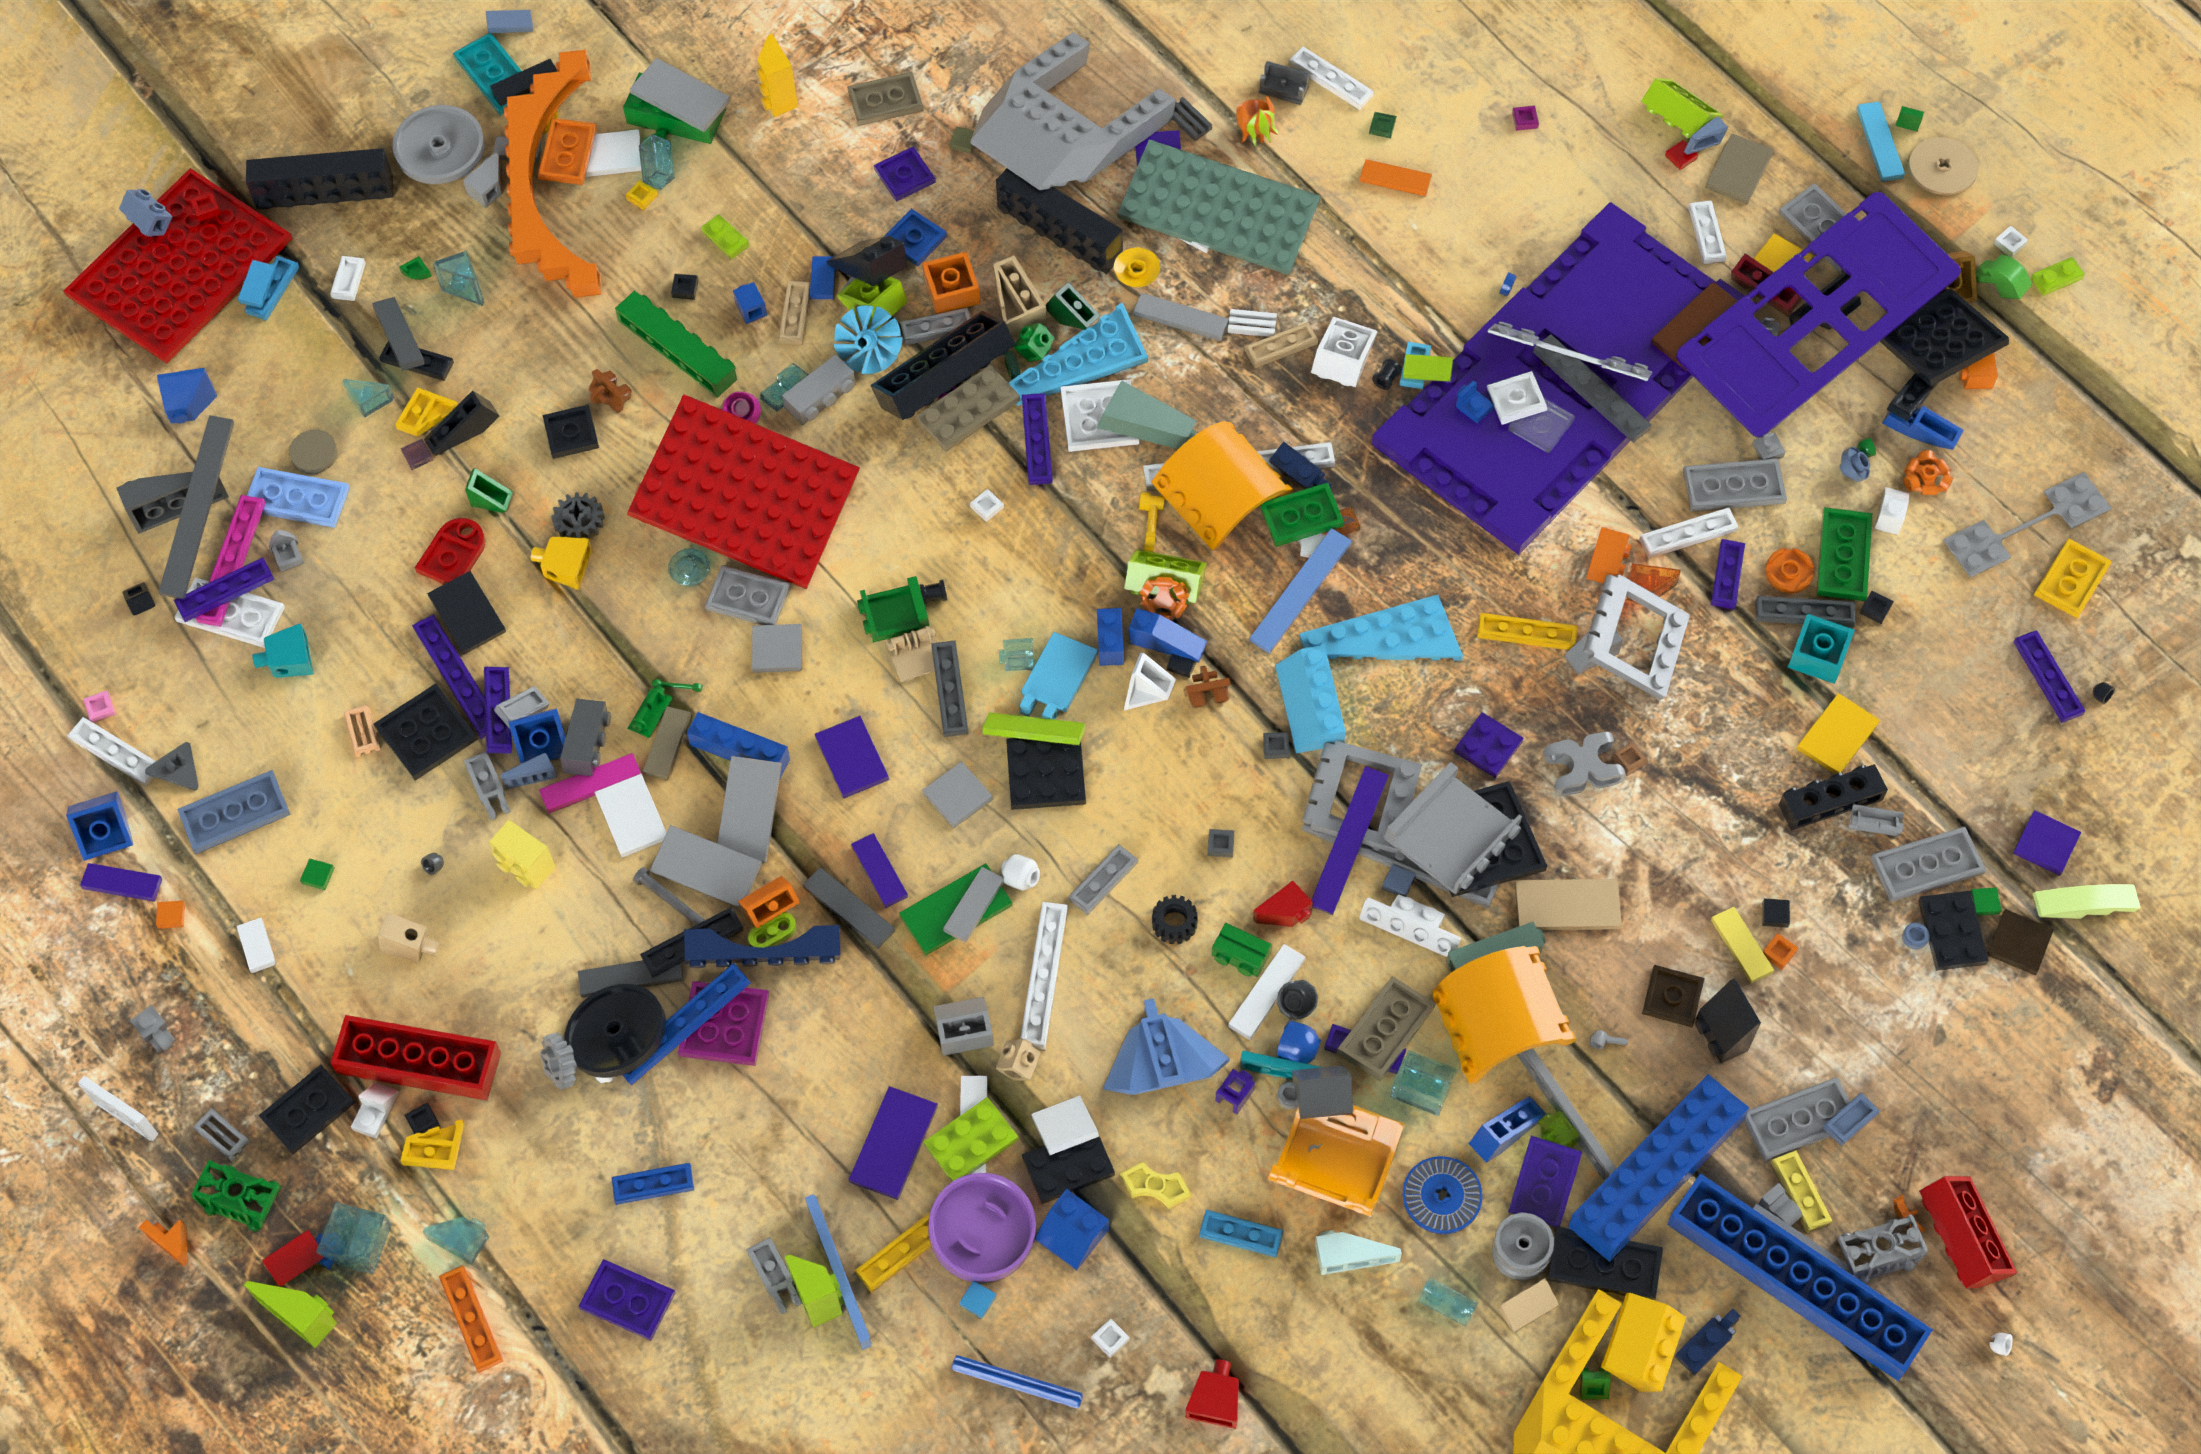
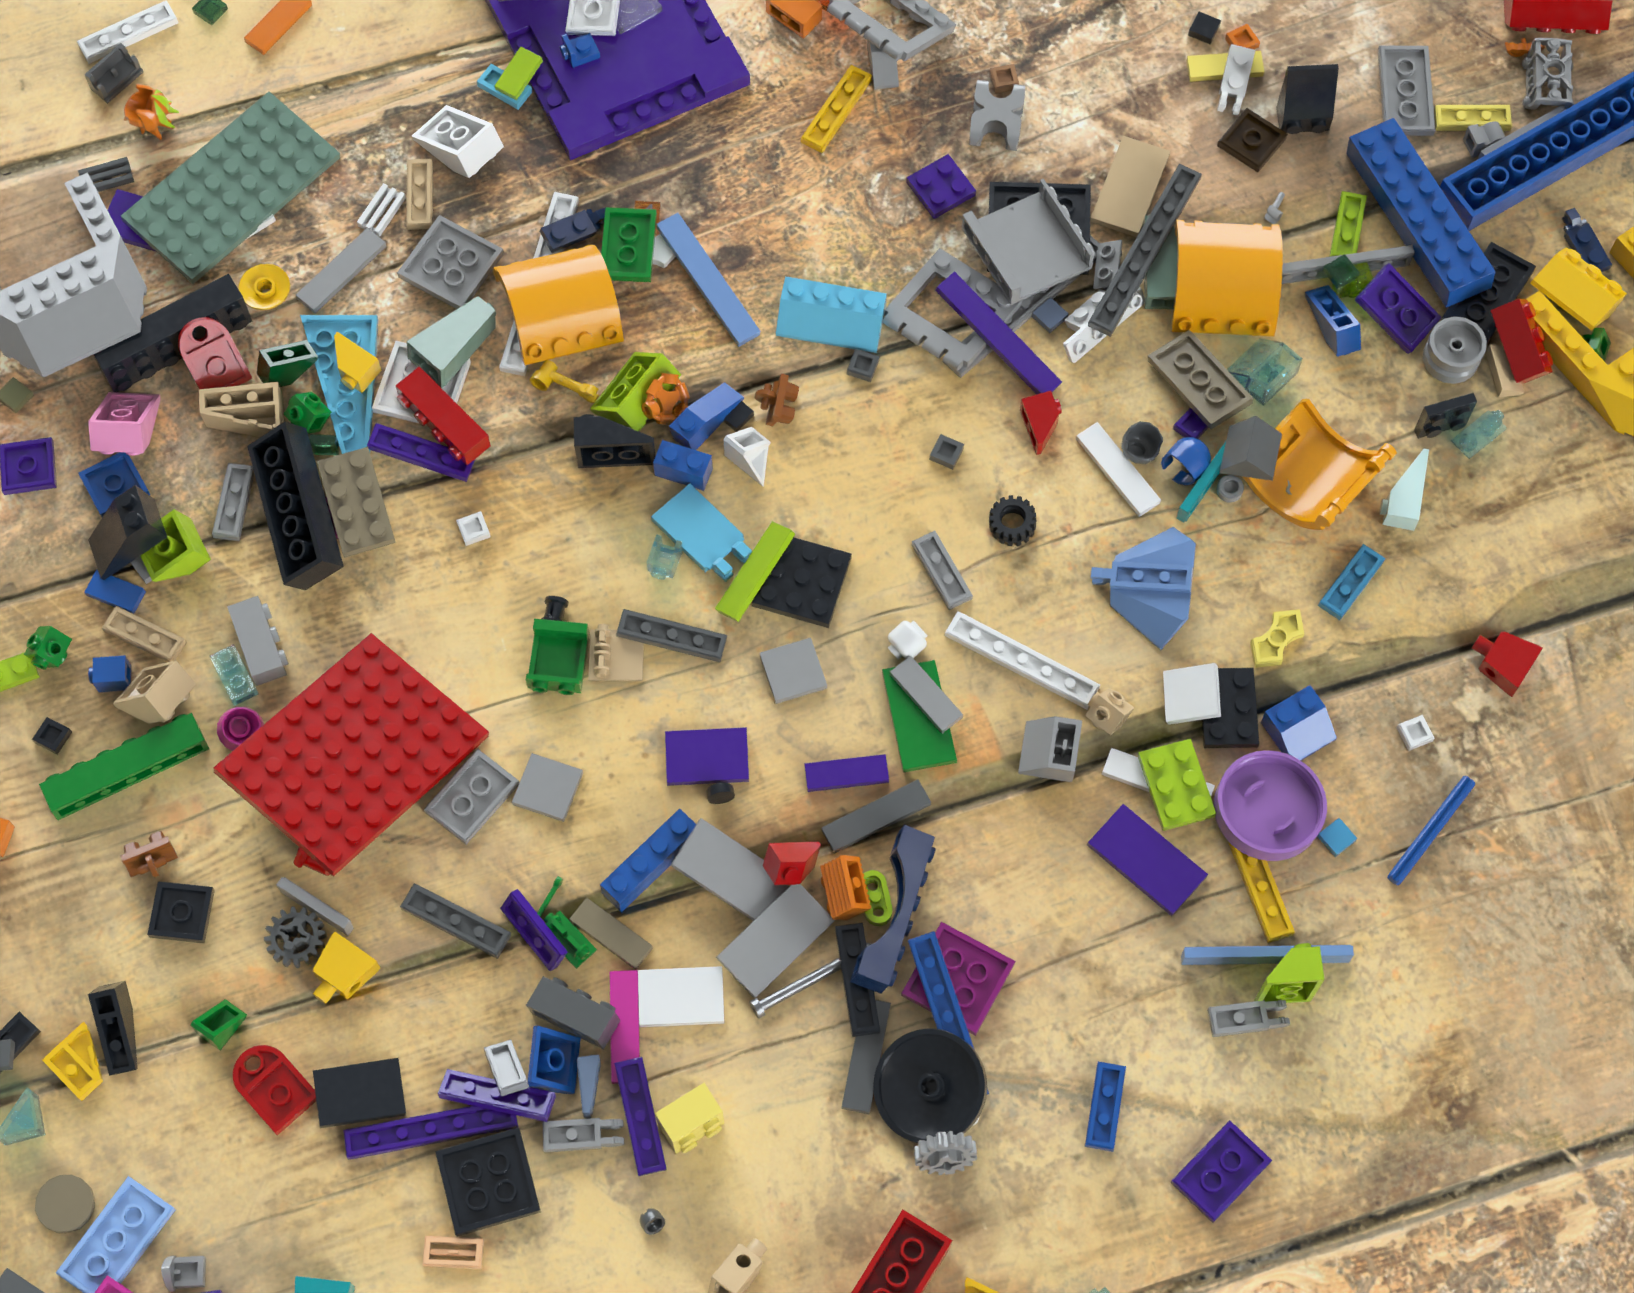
camera: 70 degrees left, 5 degrees up
(416, 454) = (125, 1089): tile -> none
(523, 815) = (640, 1116): none -> dark purple tile
(609, 520) = (315, 905): none -> light grey tile
(636, 626) = (455, 920): none -> dark grey tile
(646, 683) = (533, 930): none -> dark purple tile
(689, 567) = (411, 842): clear light blue hat -> none
(742, 338) = (156, 692): none -> tan slope
(757, 244) = (47, 647): none -> green brick
(773, 851) = (790, 861): none -> red slope
(820, 777) = (720, 793): none -> black tile
(881, 350) = (221, 557): medium azure piece -> none
(951, 283) = (195, 465): orange brick -> none
(967, 219) = (123, 423): none -> bright pink slope
(1048, 255) = (214, 358): none -> tile
(1070, 437) = (442, 415): none -> red brick
(1089, 355) = (355, 364): none -> yellow slope
(1097, 561) = (610, 444): none -> black slope
(1224, 391) = (450, 263): none -> light grey plate
(1236, 1089) = (1210, 531): dark purple window -> none
(1241, 950) = (1070, 473): green brick -> none
(1386, 374) = (503, 115): black bush -> none
(1394, 633) = (789, 216): medium azure wing -> none
(1438, 1251) = (1445, 415): none -> black plate
(1443, 1215) = (1382, 416): piece -> none
(1480, 909) = (1107, 263): none -> light grey hinge
(1495, 932) = (1144, 250): none -> dark grey tile
(1554, 1112) = (1341, 271): none -> clear green tile
(1558, 1304) = (1522, 340): none -> red brick
(1620, 1112) = (1348, 224): none -> lime tile
(1729, 956) = (1235, 77): none -> white hinge
(1851, 1119) = (1425, 50): sand blue tile -> none

